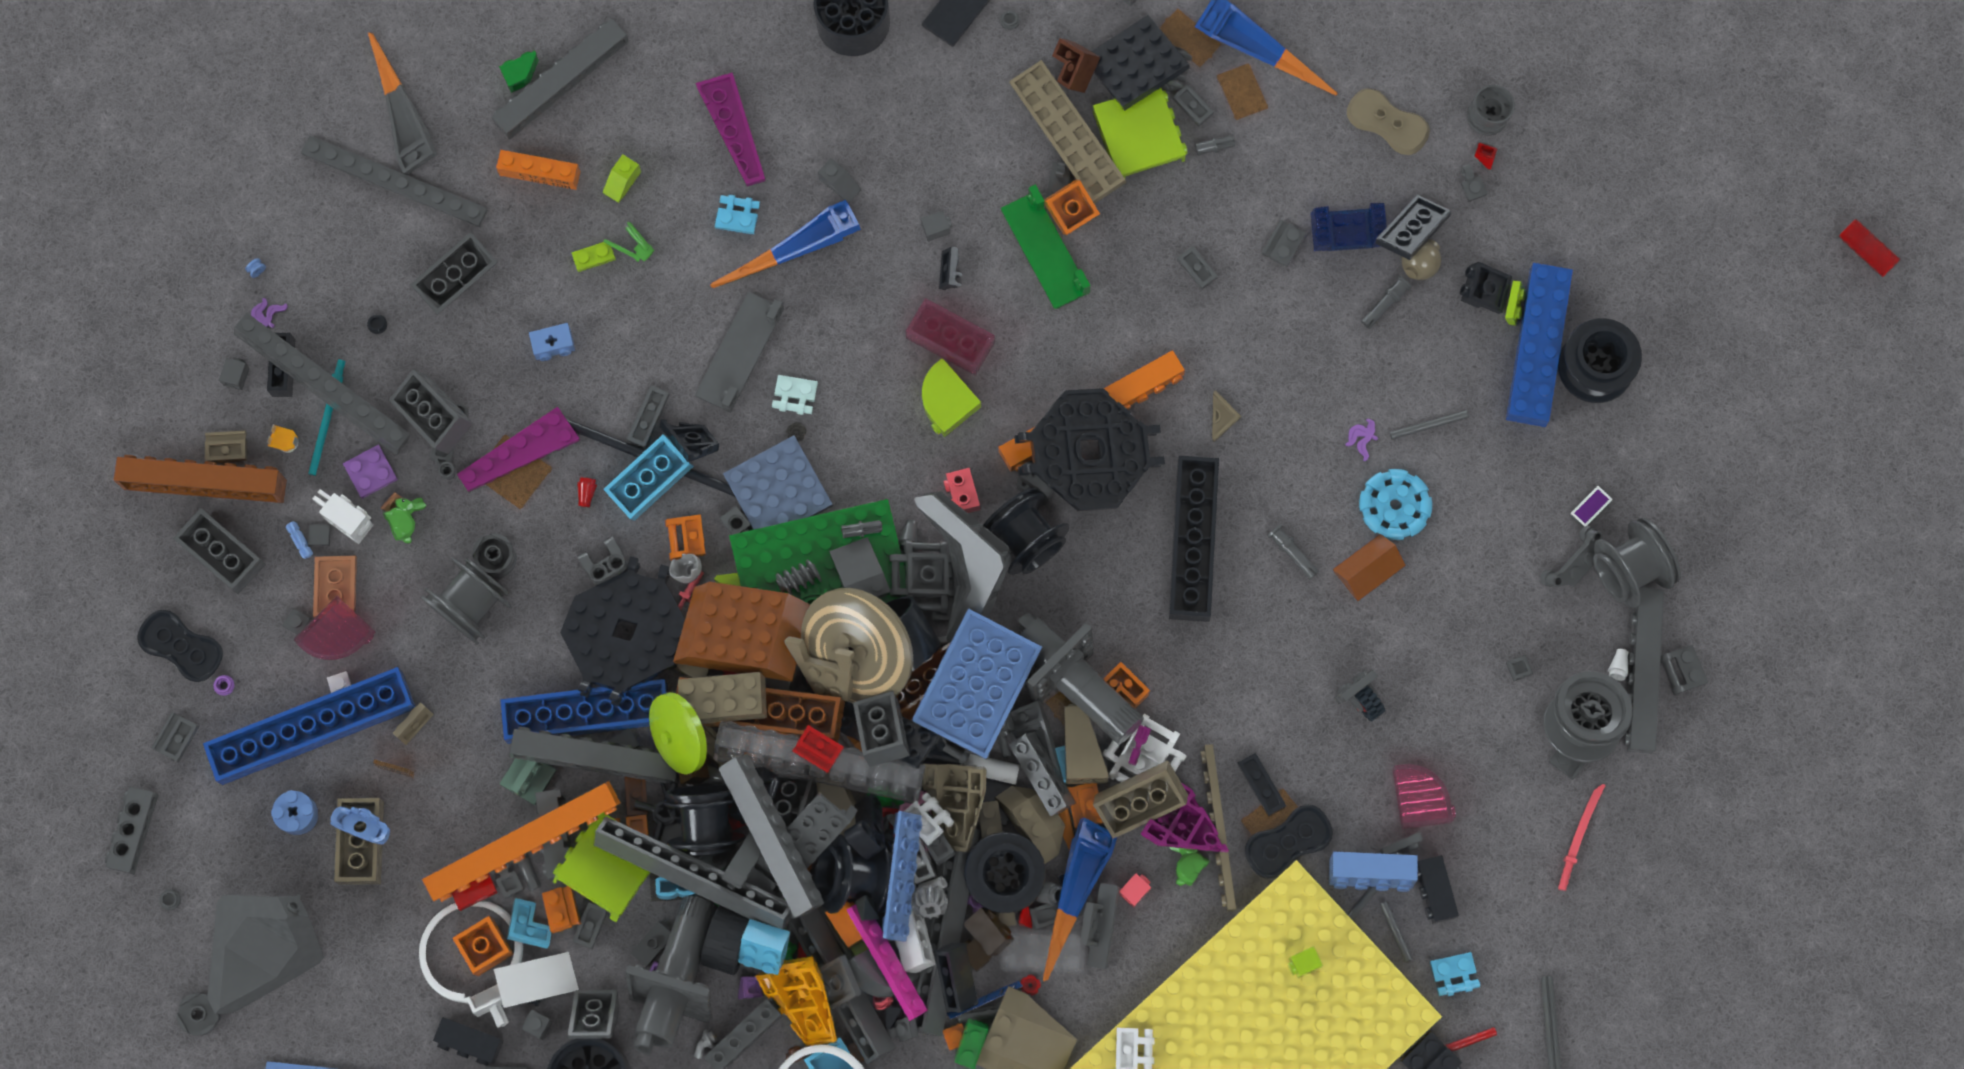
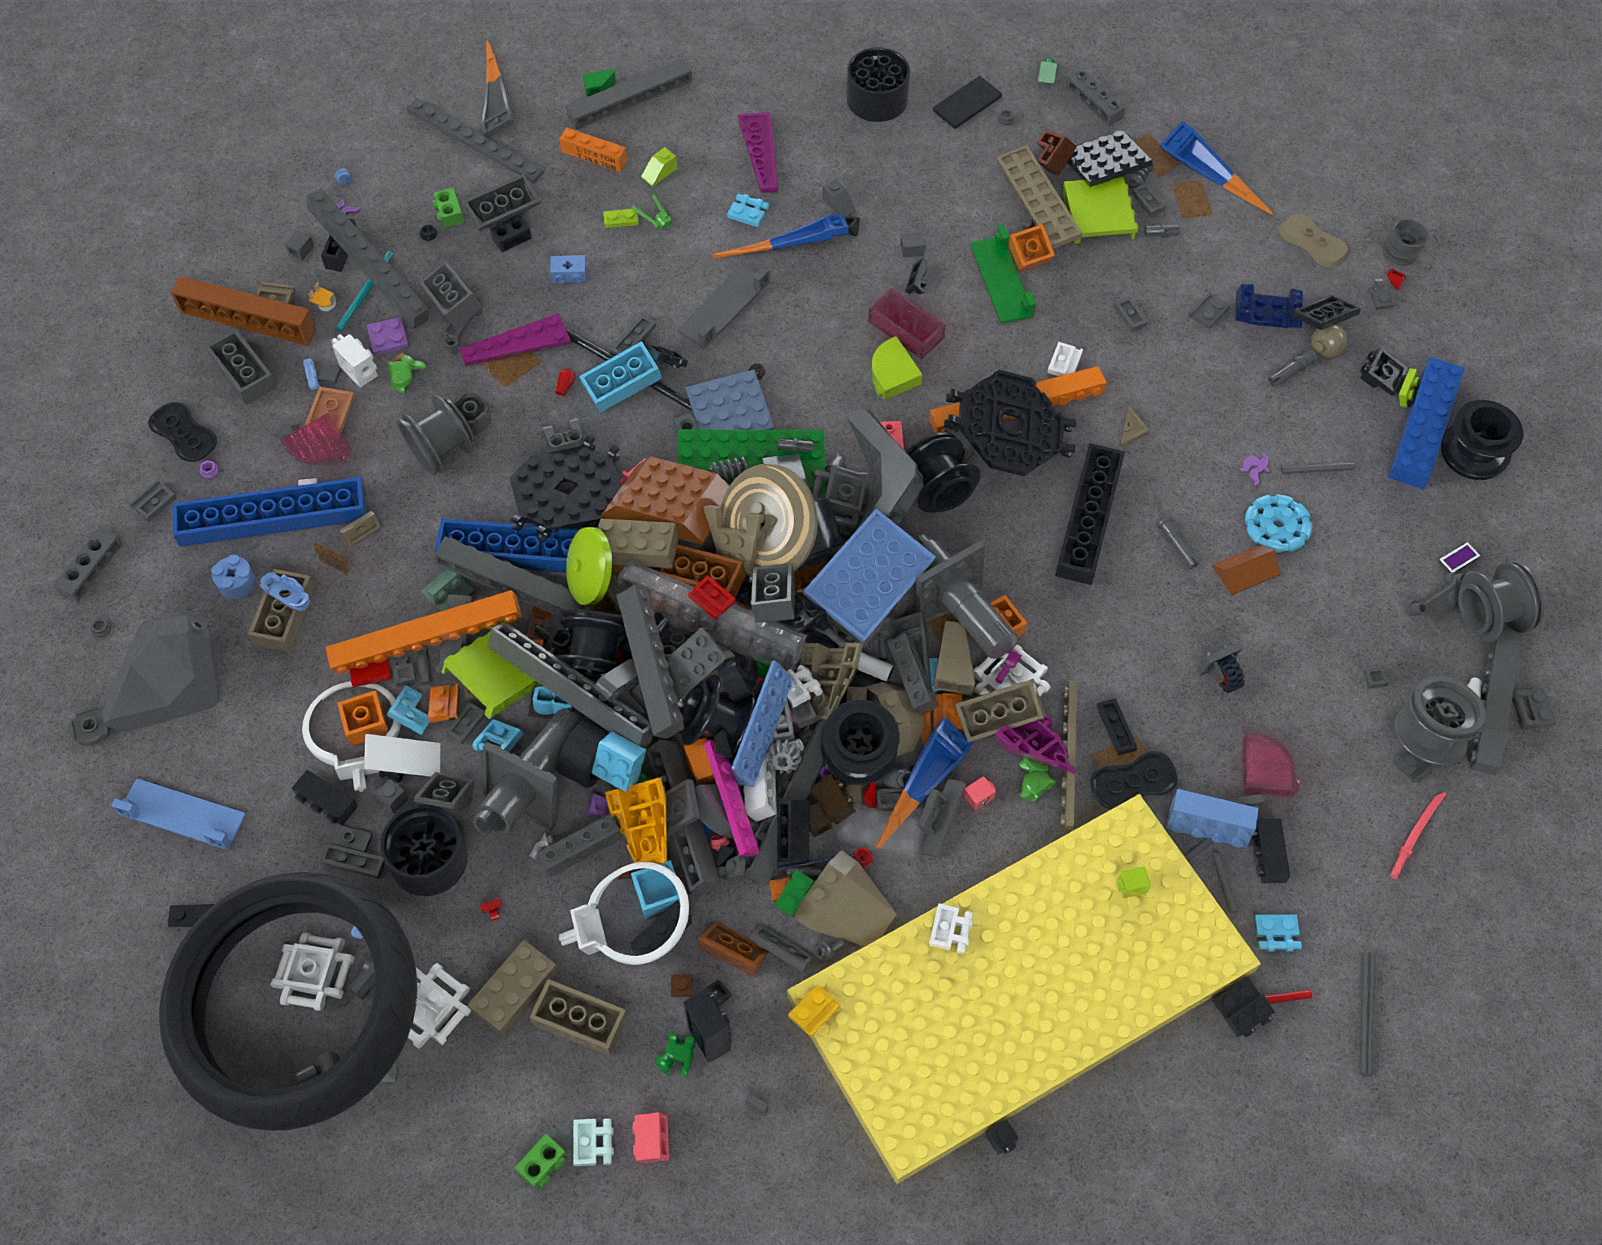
camera: 10 degrees right, 15 degrees down
(393, 285) = (448, 208): none -> bright green brick
(477, 310) = (510, 233): none -> black brick
(631, 932) = (498, 733): none -> medium azure plate
(685, 569) = (633, 454): light grey hair -> none
(692, 536) = (646, 432): orange plate -> none
(794, 388) = (765, 341): light aqua plate -> none
(861, 211) = (853, 225): none -> pearl dark grey slope
(1134, 345) = (1064, 360): none -> white plate

